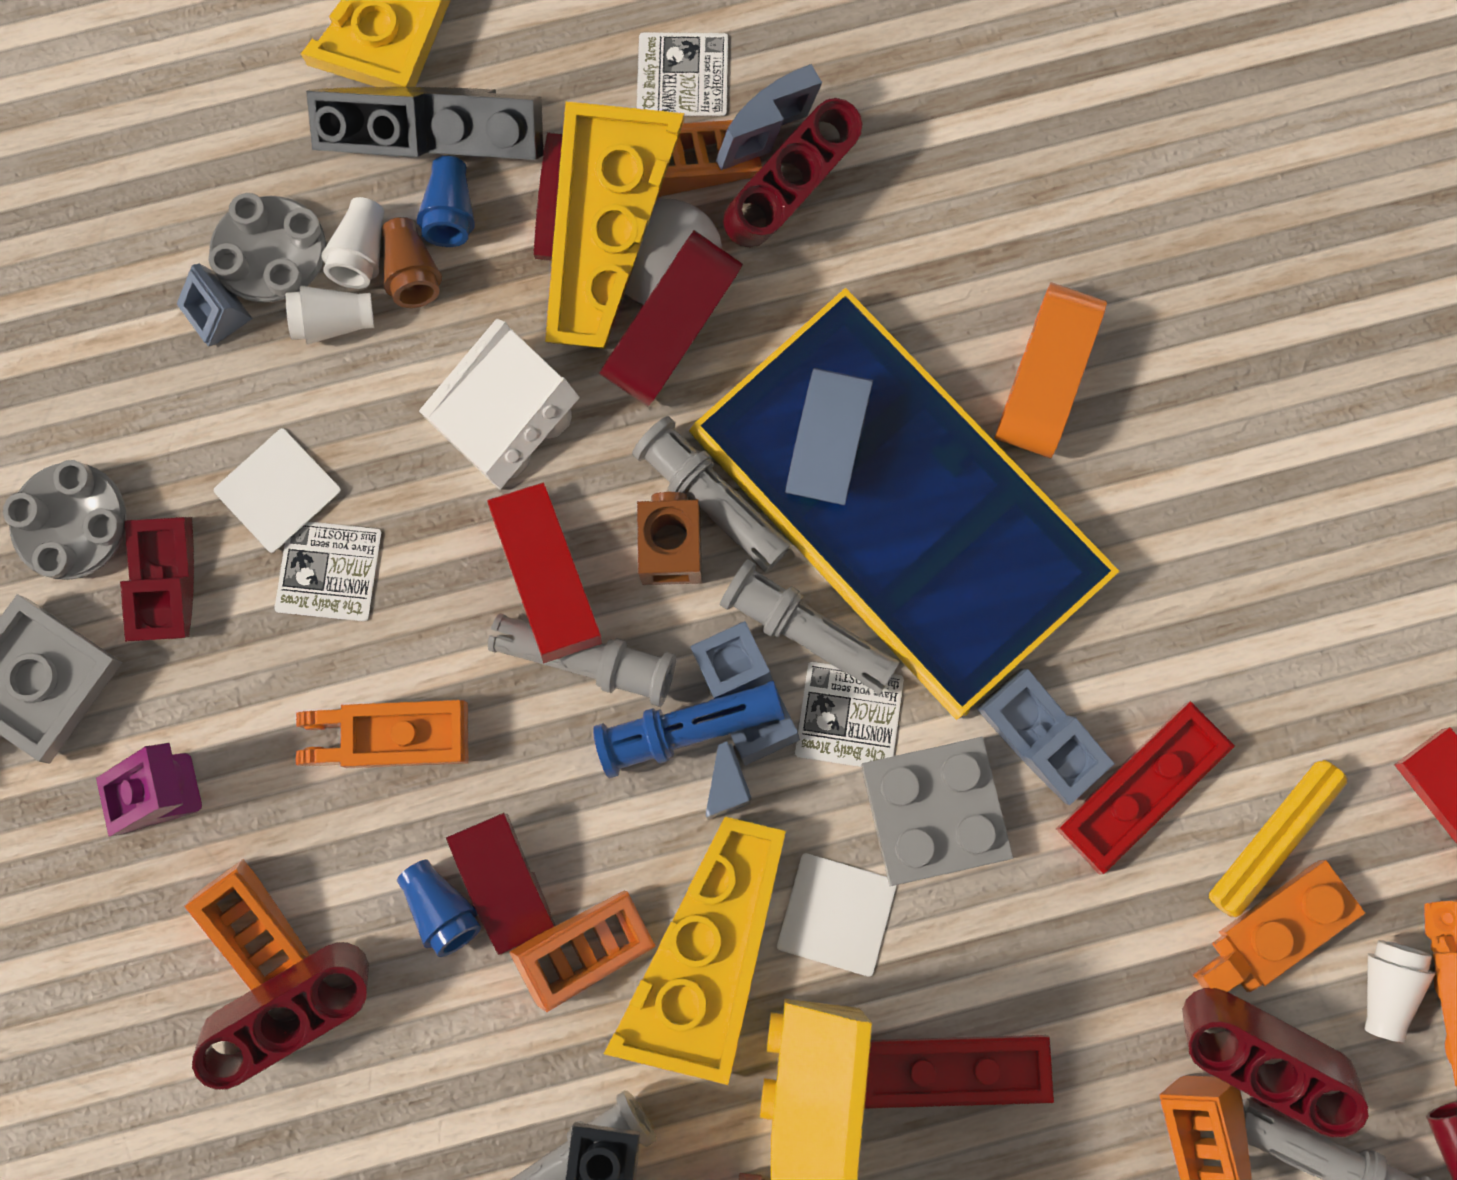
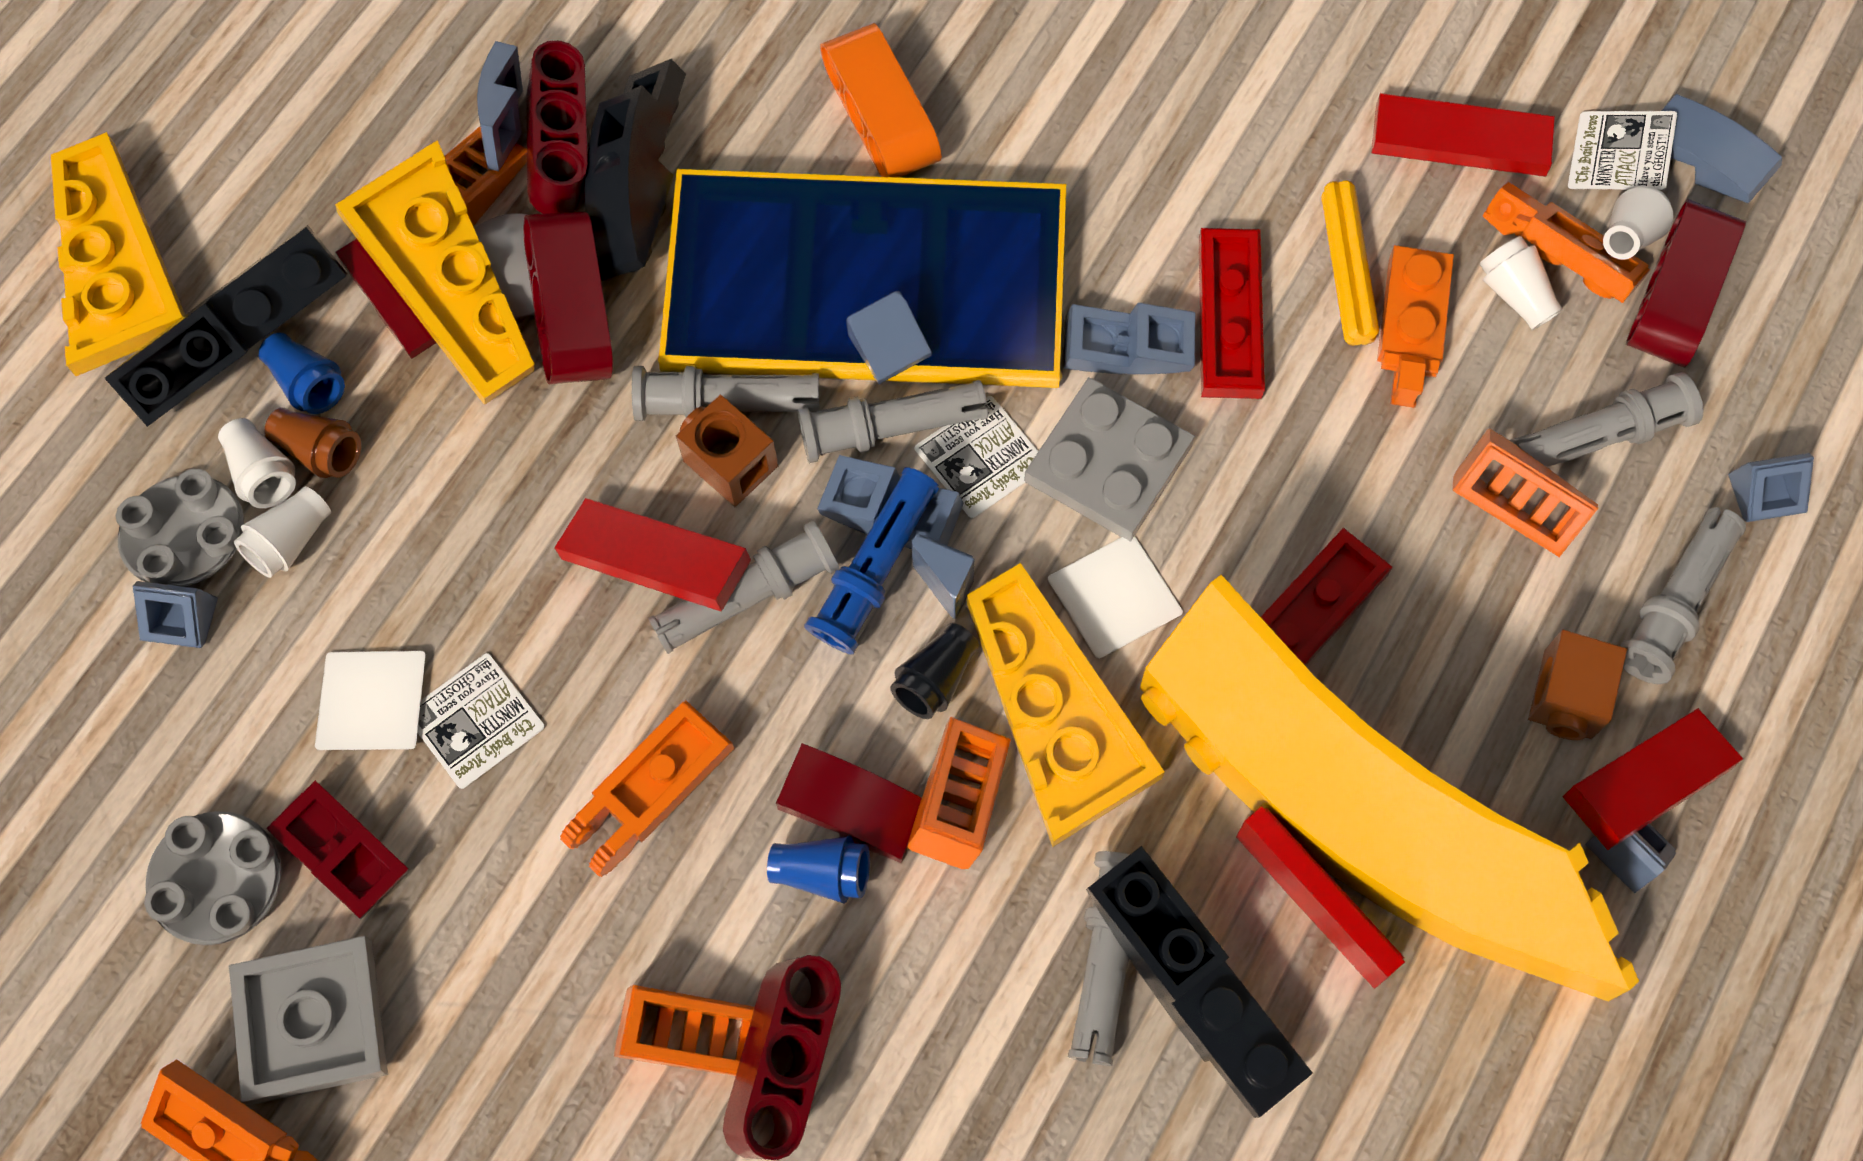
camera: 50 degrees left, 10 degrees down
(148, 789) = (493, 1007): magenta slope -> none
(500, 404) = (493, 473): white slope -> none
(650, 847) = (932, 674): none -> black cone
(683, 73) = (393, 133): sticker -> none
(801, 257) = (623, 173): none -> black slope
(829, 436) = (771, 271): sand blue slope -> none
(863, 568) = (887, 337): none -> sand blue slope
(1290, 1086) = (1525, 394): dark red beam -> none

